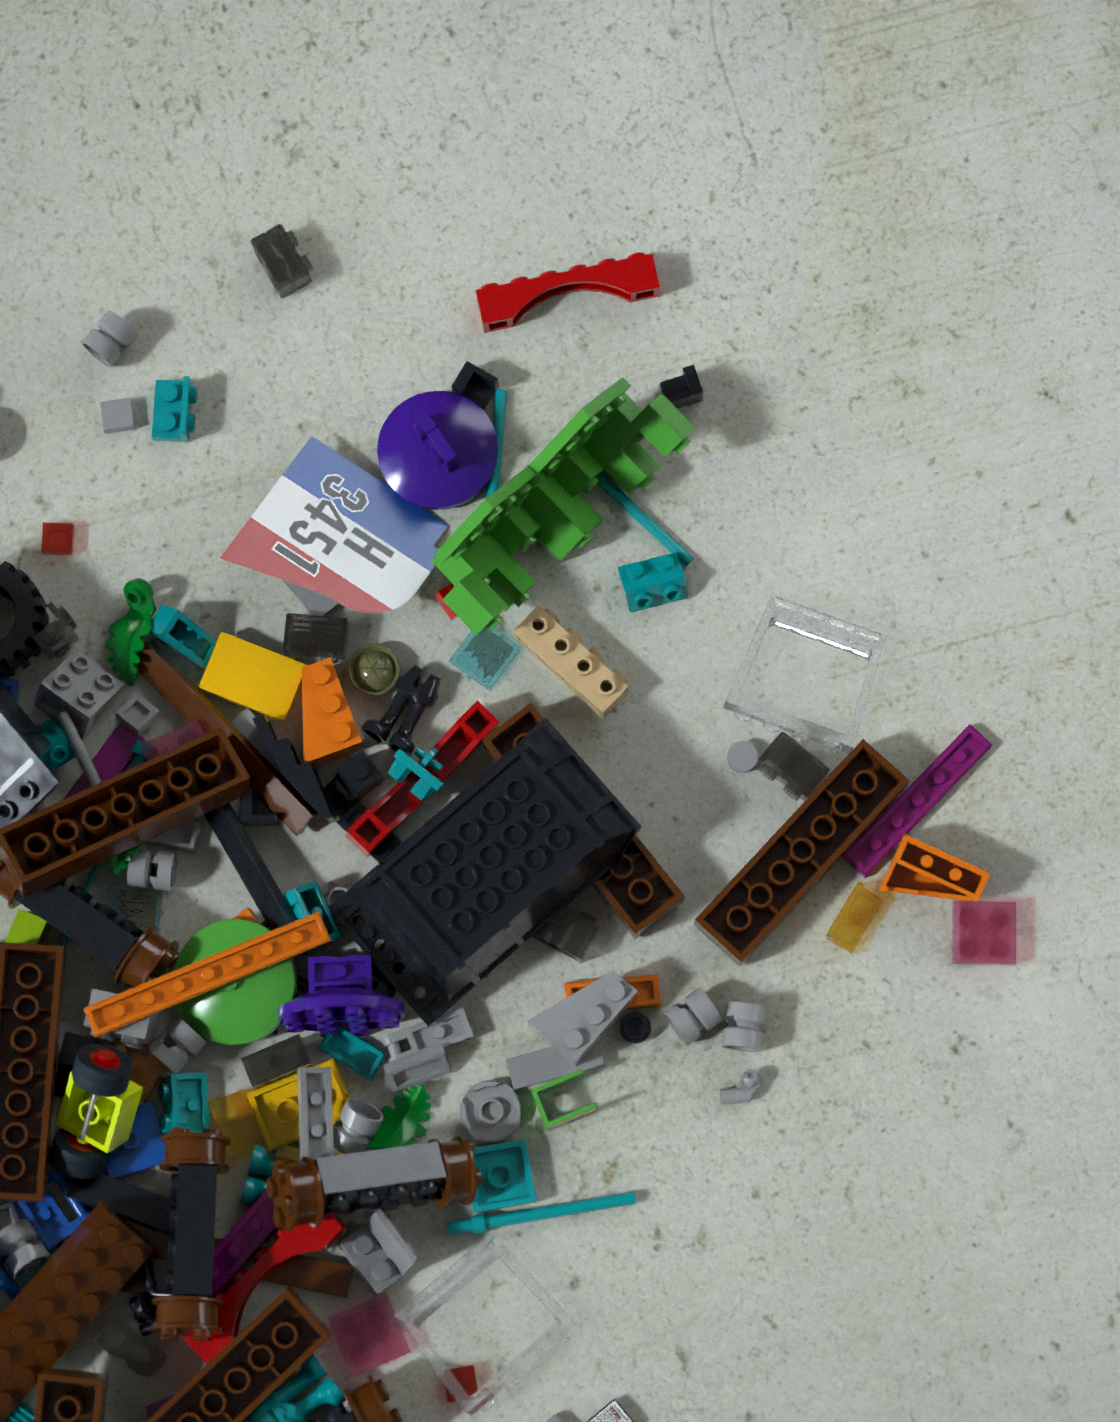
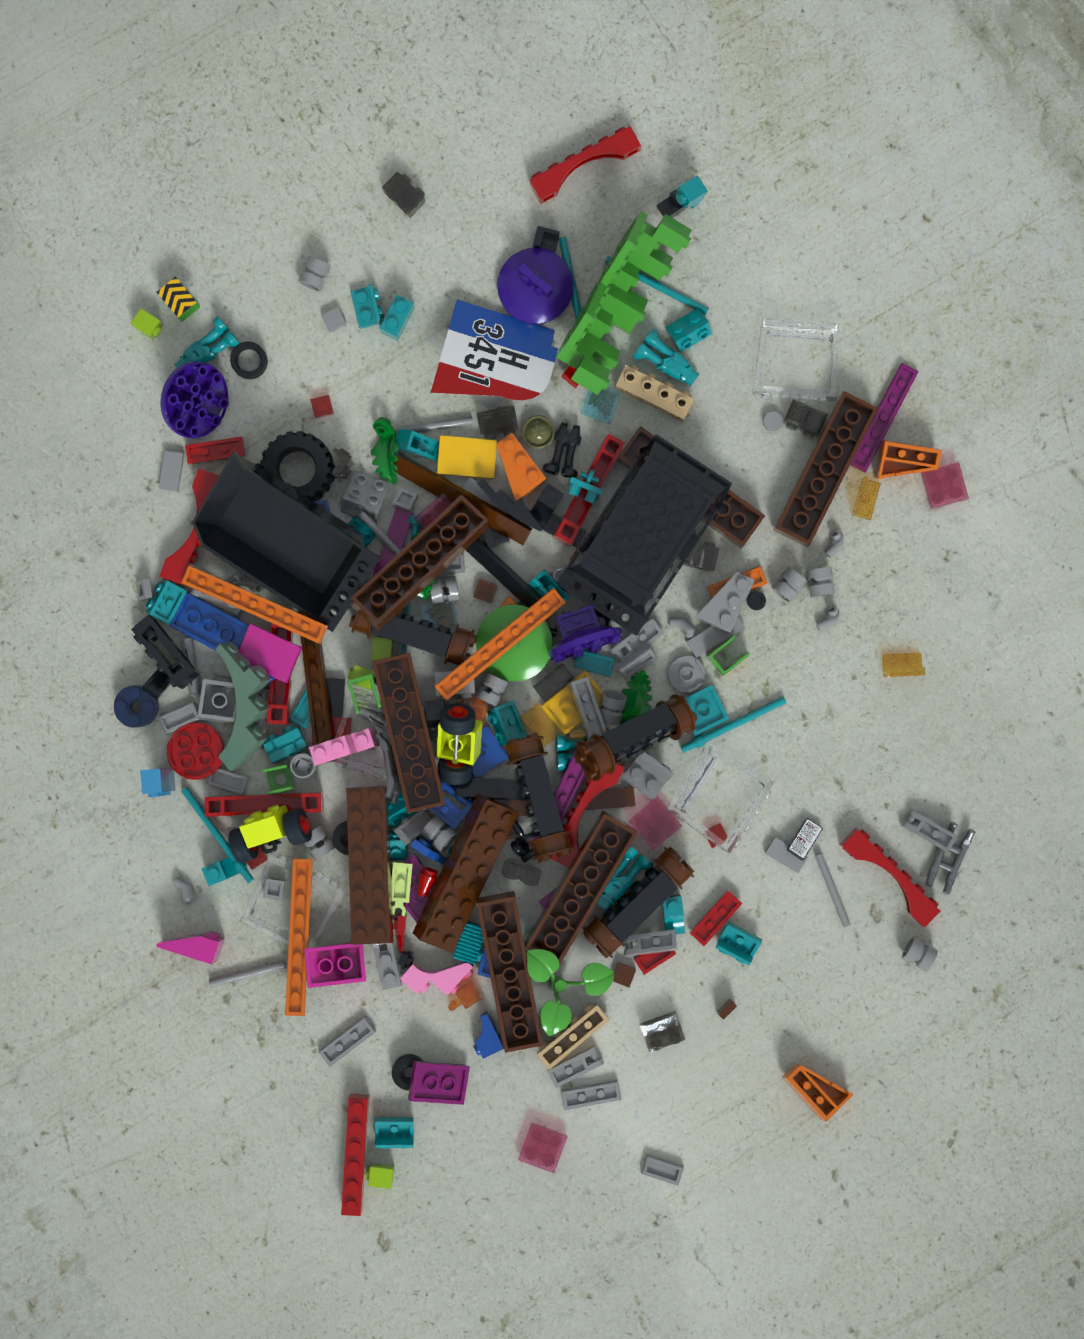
camera: 25 degrees left, 10 degrees up
(213, 438) = (397, 317): none -> teal brick
(217, 890) = (485, 591): none -> reddish brown tile
(226, 616) = (438, 425): none -> light grey bar
(511, 1032) = (685, 625): none -> light grey arm
(615, 626) = (674, 365): none -> teal piece
(713, 376) = (691, 193): none -> teal arch
(788, 973) = (836, 543): none -> light grey arm
(838, 1197) = (903, 665): none -> clear yellow panel

